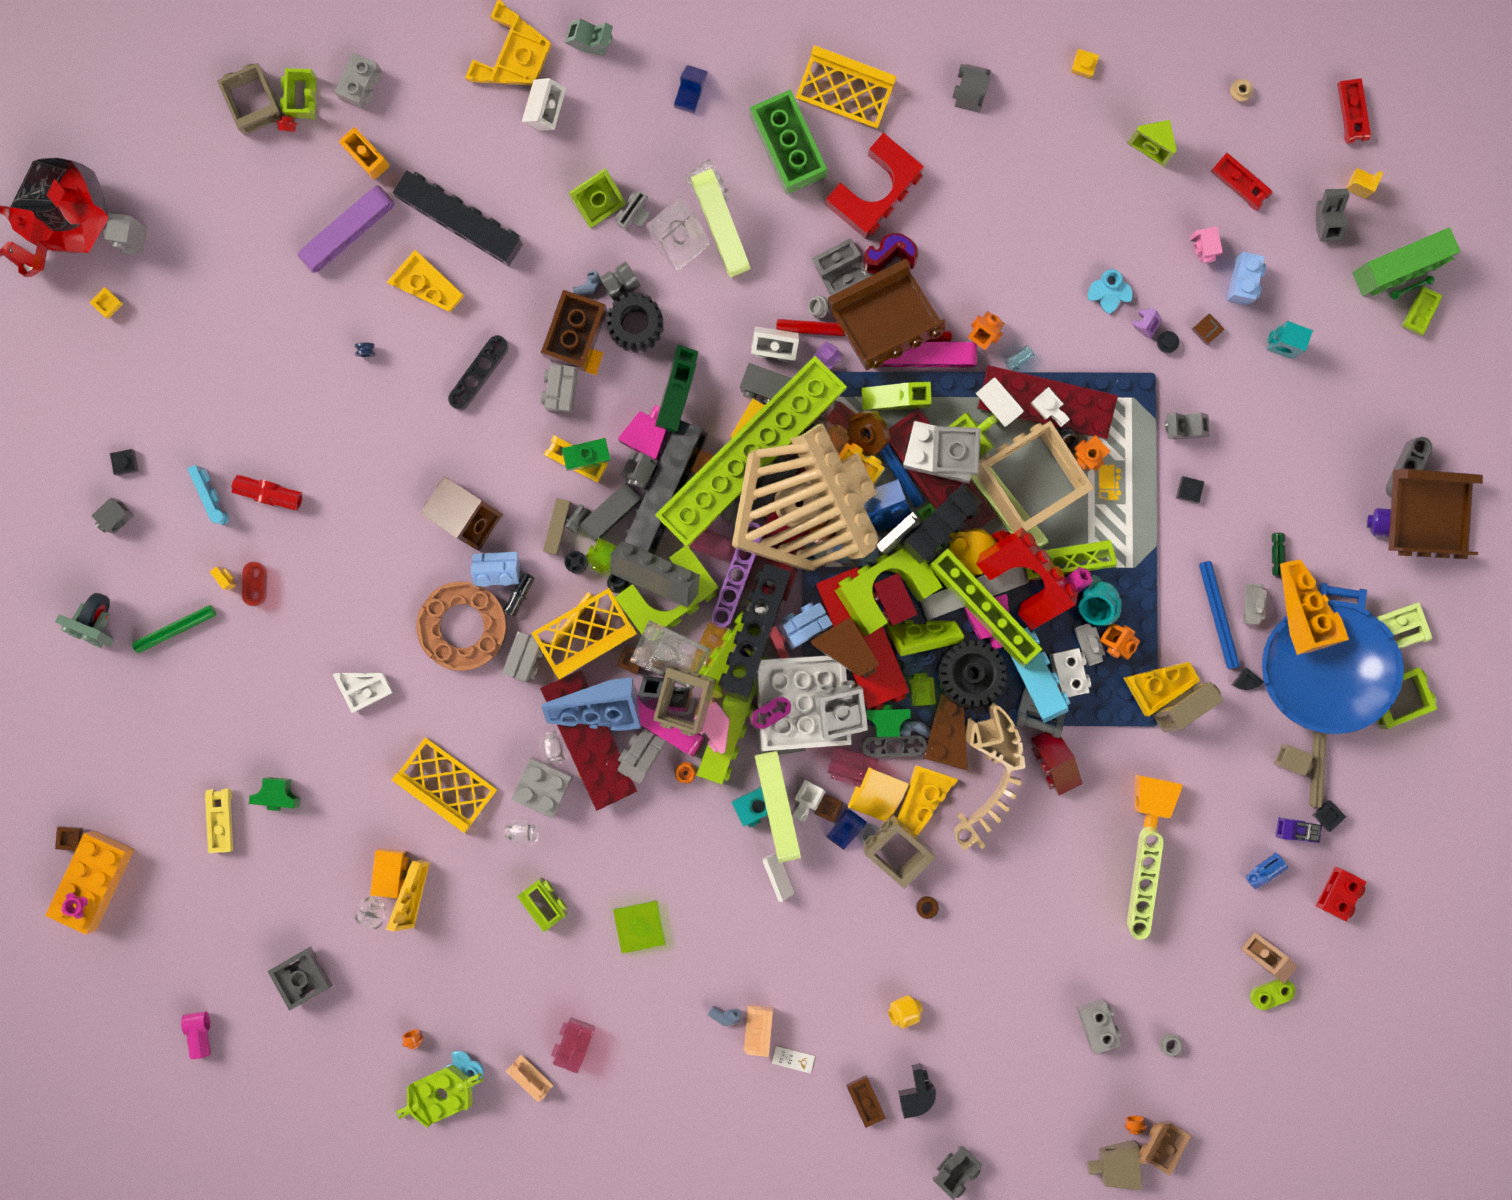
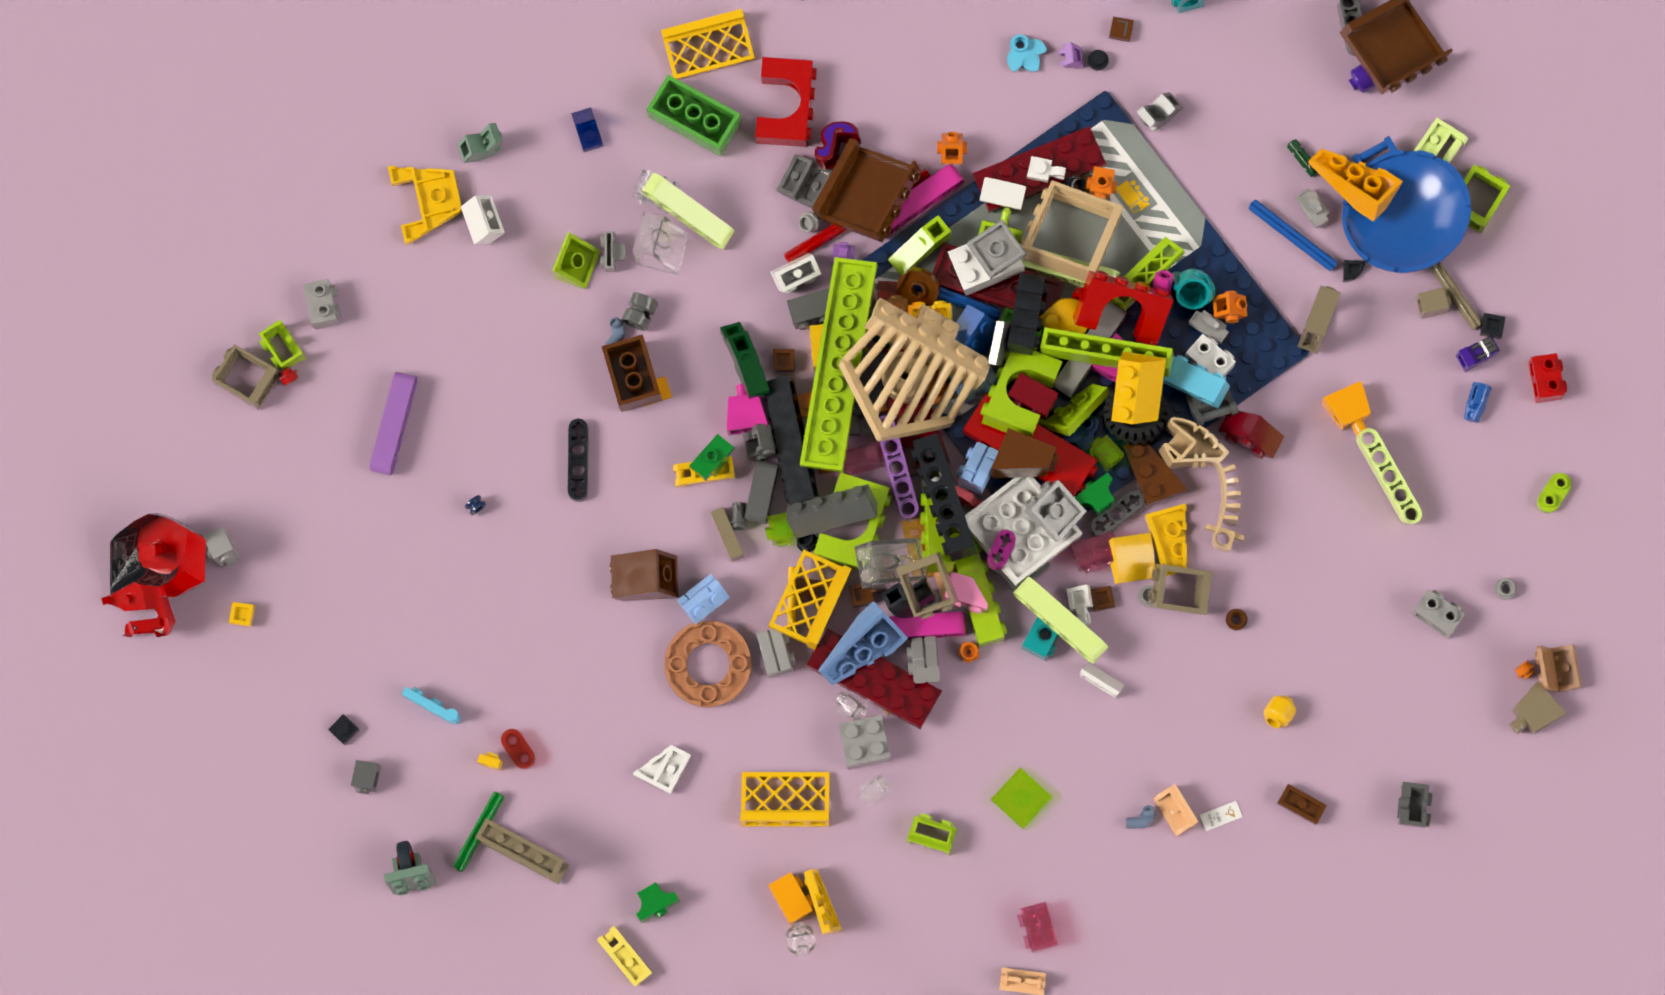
camera: 25 degrees left, 10 degrees down
(190, 676) = (522, 851): none -> dark tan fence
(266, 492) = (477, 670): red piece -> none
(364, 153) = (367, 354): light orange brick -> none
(424, 281) = (486, 419): yellow wing -> none
(458, 218) = (476, 352): black brick -> none
(519, 594) = (735, 607): black axle -> none
(560, 388) = (653, 426): light grey brick -> none
(577, 559) = (762, 545): black wheel -> none
(631, 304) = (669, 317): black tyre -> none
(711, 411) = (783, 360): none -> reddish brown plate
(846, 828) = (1127, 602): clear blue slope -> none
(914, 725) = (1123, 484): sand blue arm -> none
(919, 1099) = (1342, 770): black brick -> none
(987, 661) = (1138, 388): none -> yellow slope
(1018, 359) = (993, 152): clear light blue pin -> none
(1161, 686) = (1288, 319): yellow wing -> none
(1190, 489) = (1199, 158): black plate -> none
(1269, 957) = (1529, 465): medium nougat slope -> none

